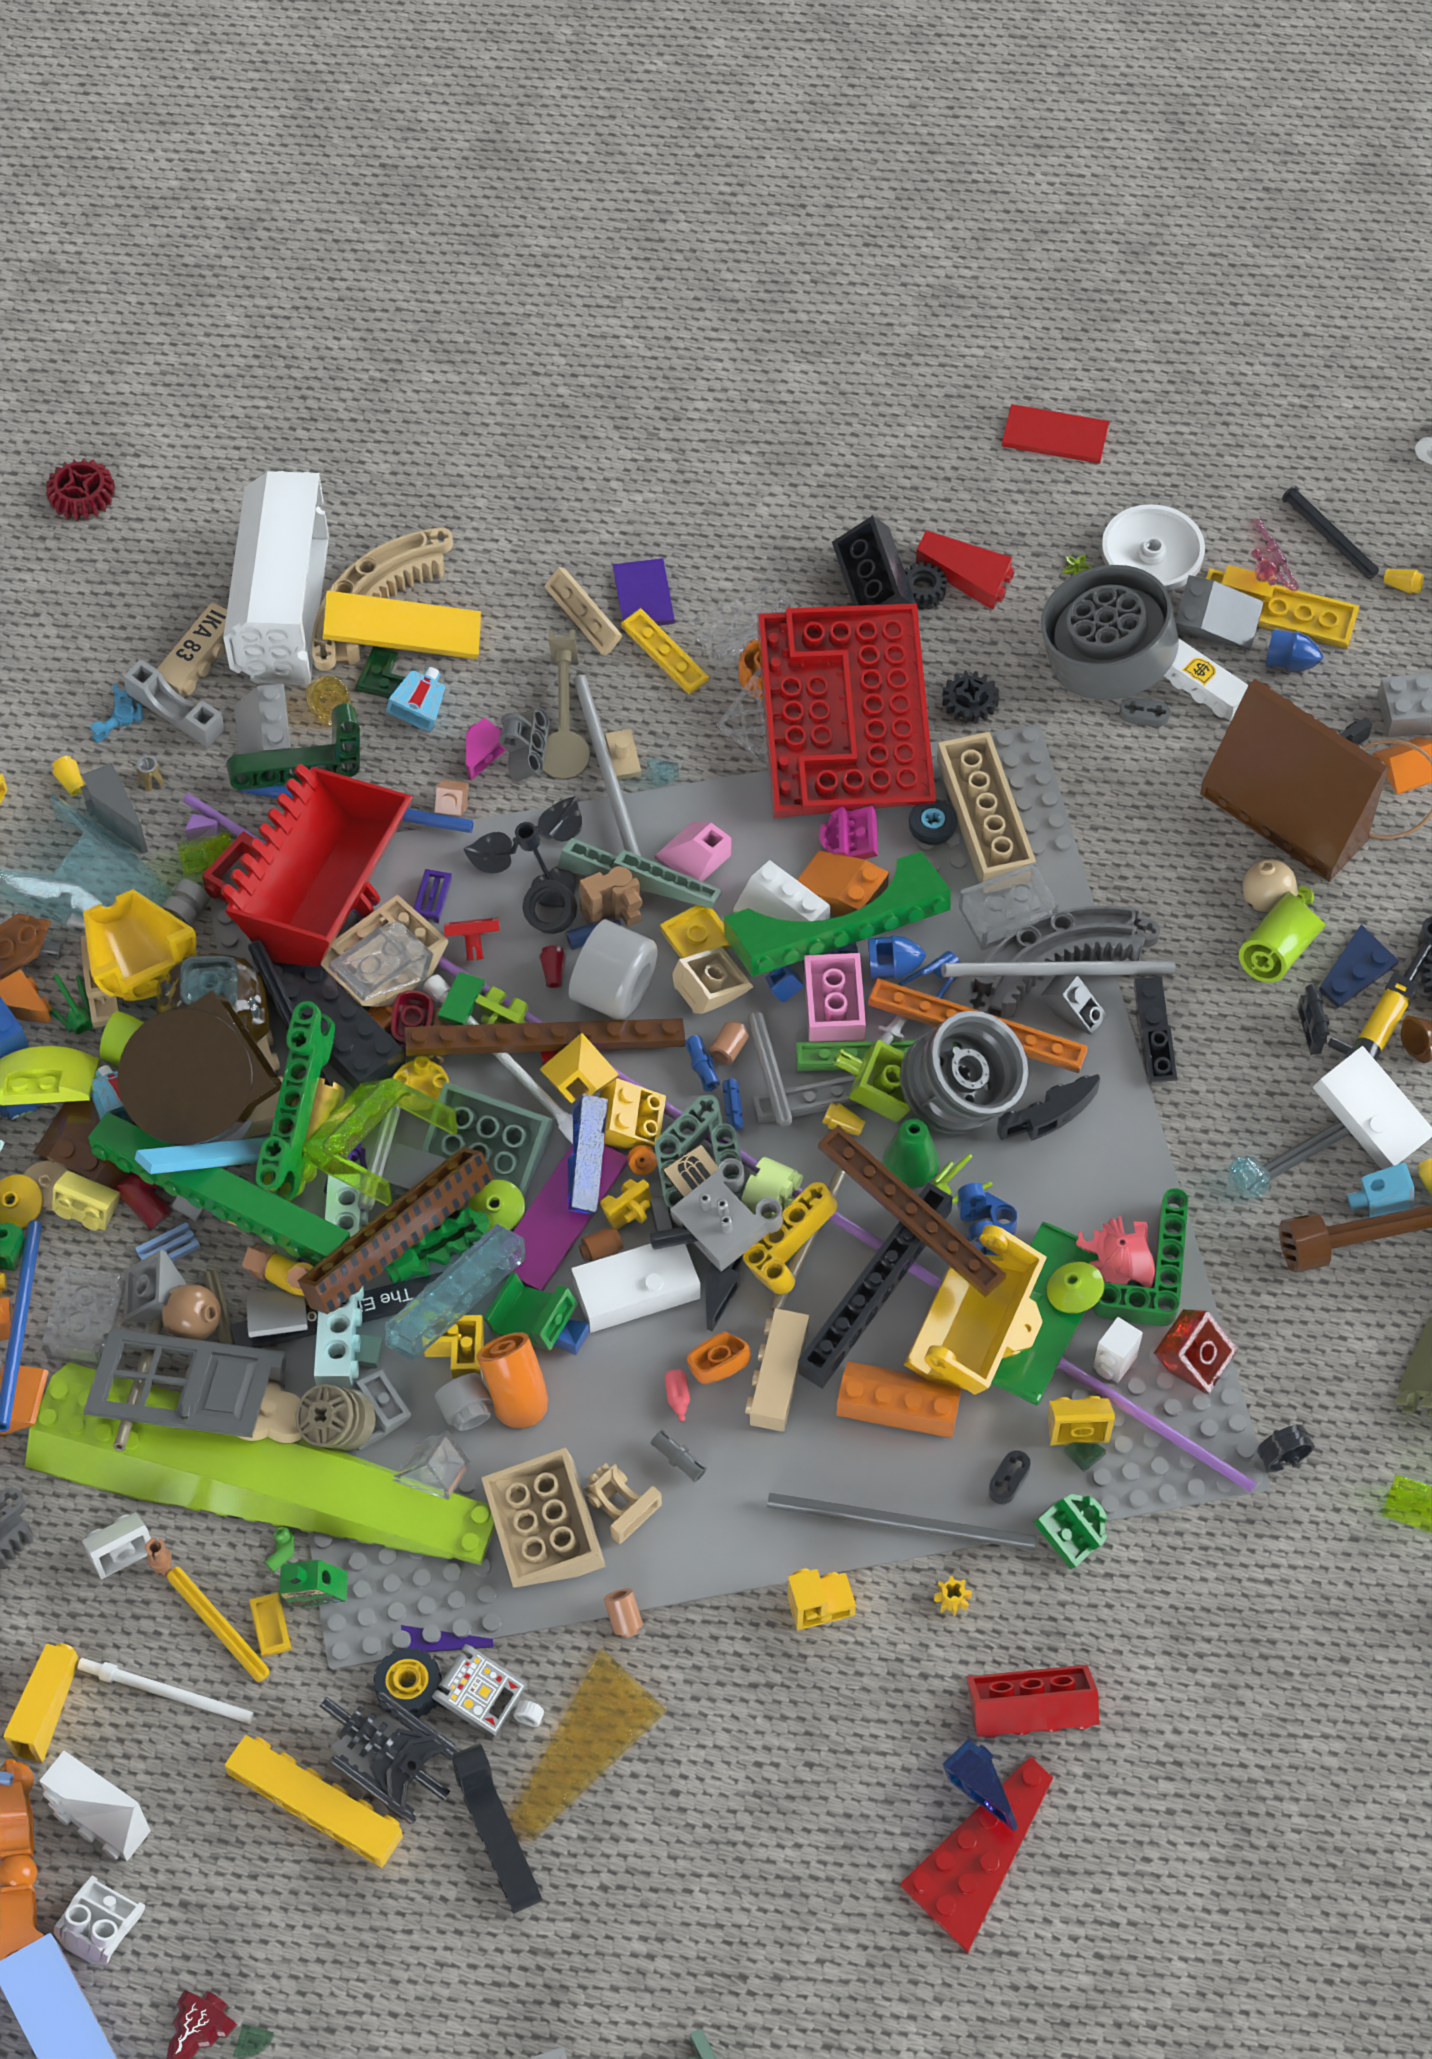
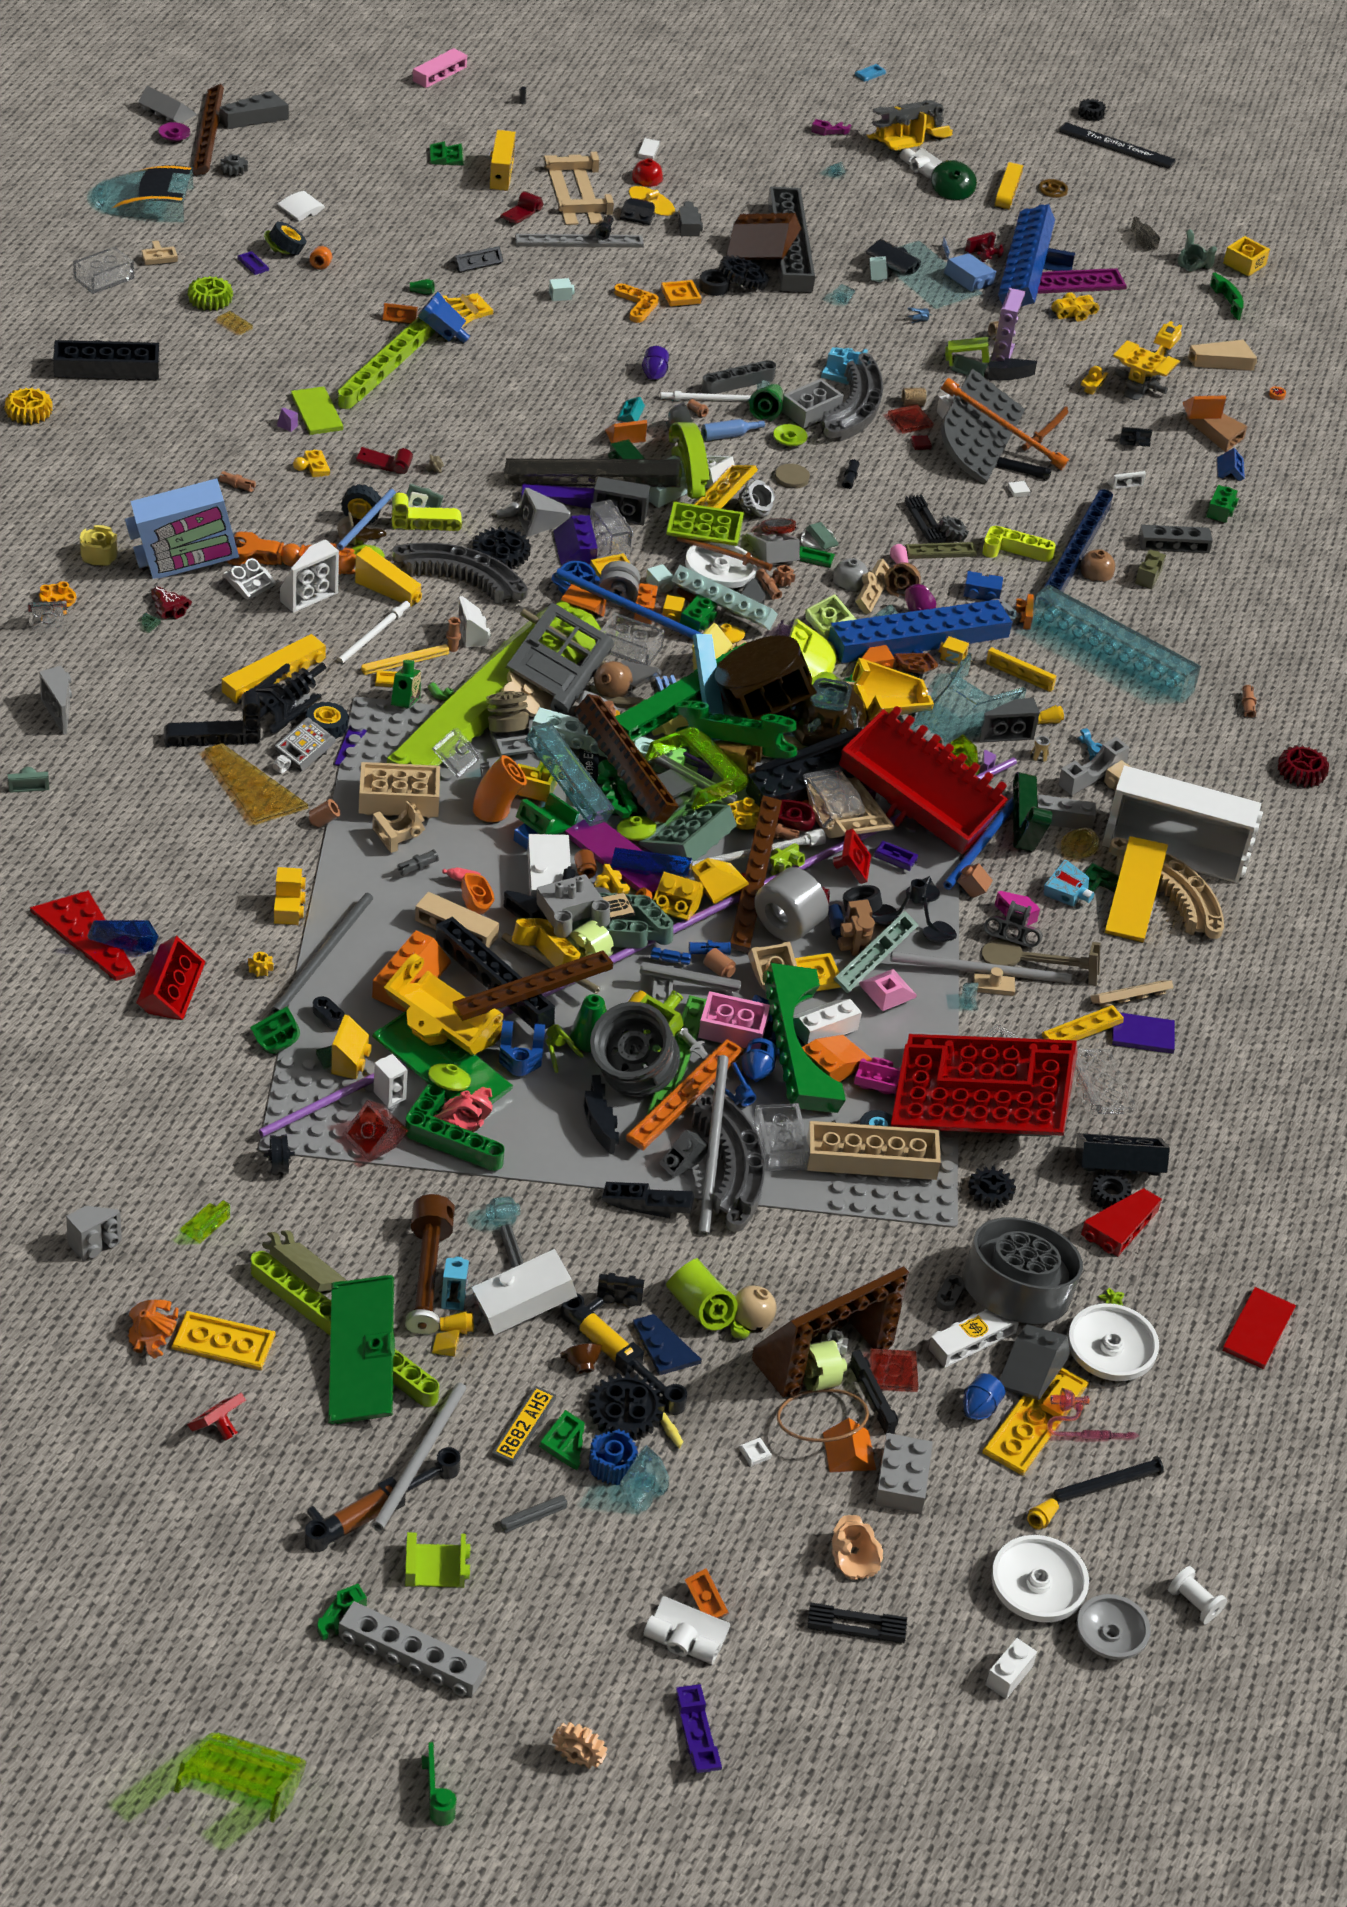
camera: 100 degrees right, 15 degrees down
(461, 999) = (792, 834): green tile -> none

